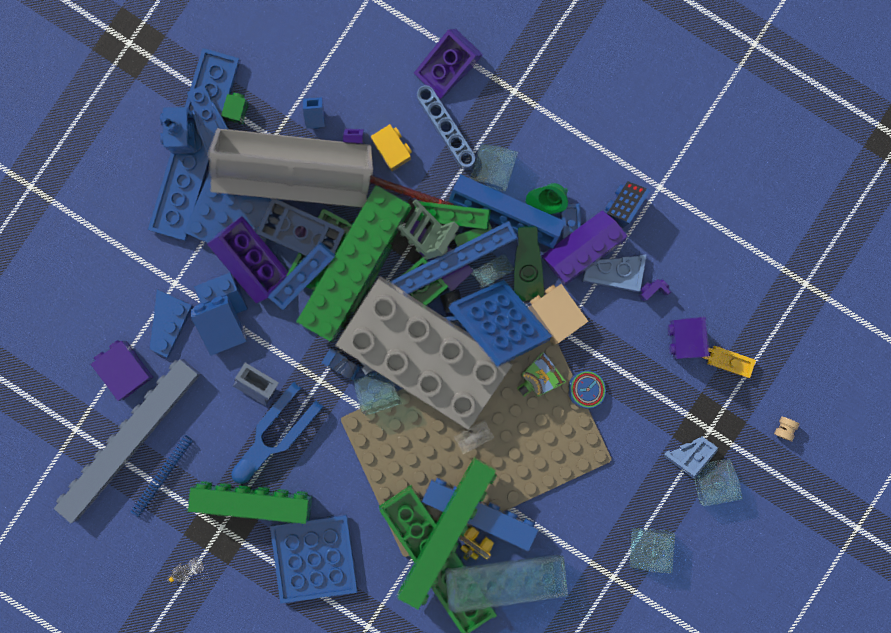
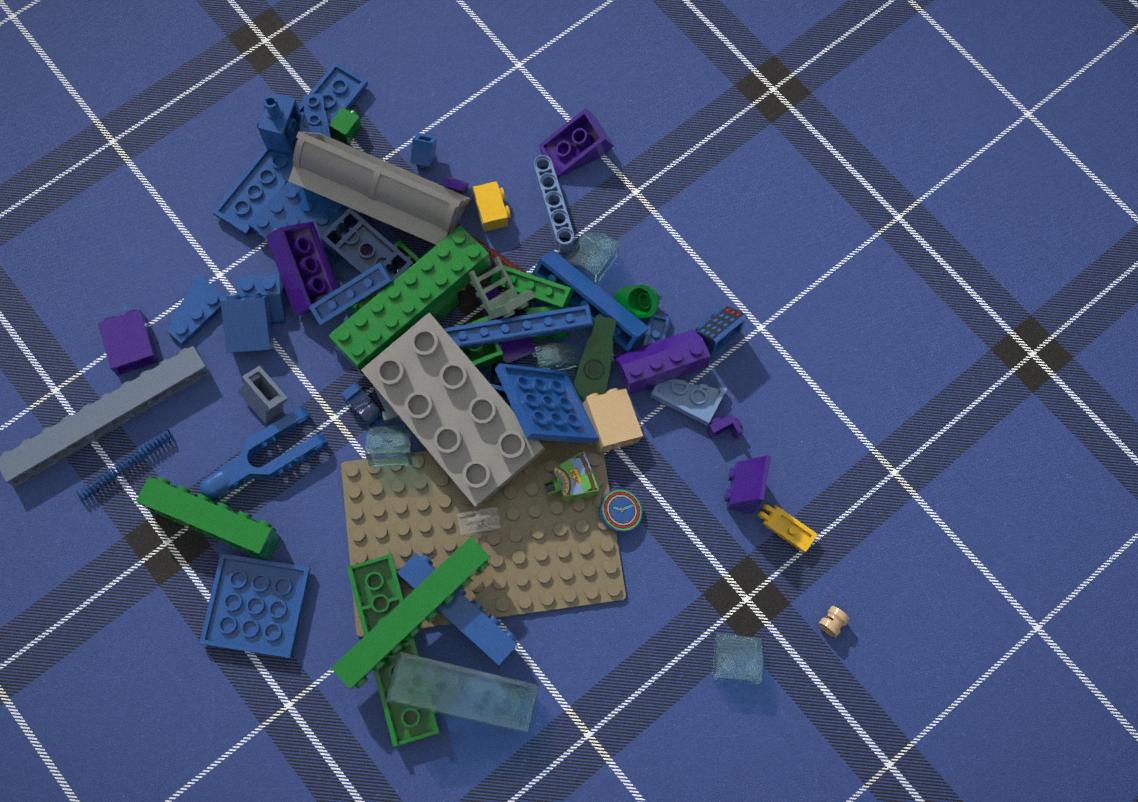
camera: 15 degrees right, 15 degrees down
(181, 573) = (103, 576): clear piece -> none
(482, 548) = (437, 634): yellow hips -> none
(652, 550) = (642, 713): clear light blue slope -> none
(692, 456) = (718, 620): medium blue wing -> none

